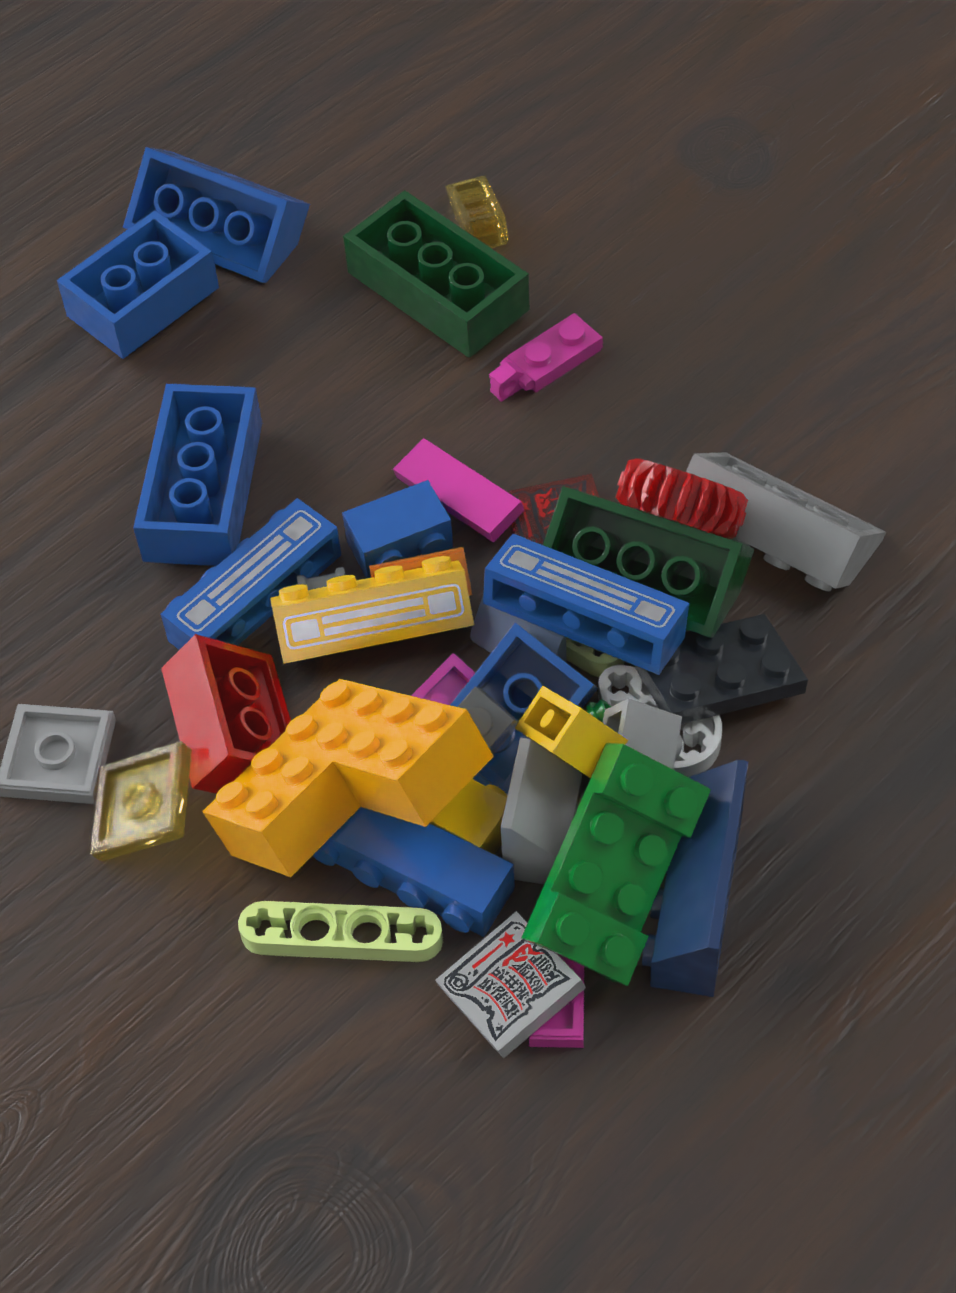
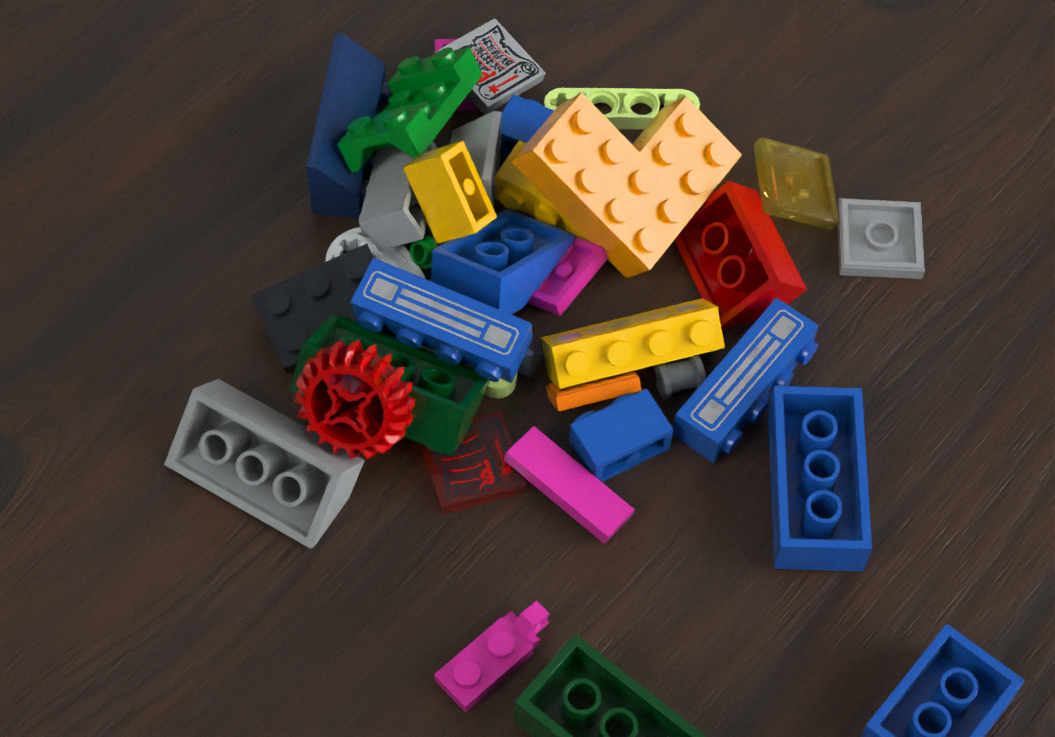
camera: 170 degrees right, 5 degrees up
(490, 718) = (524, 215): dark grey brick -> none

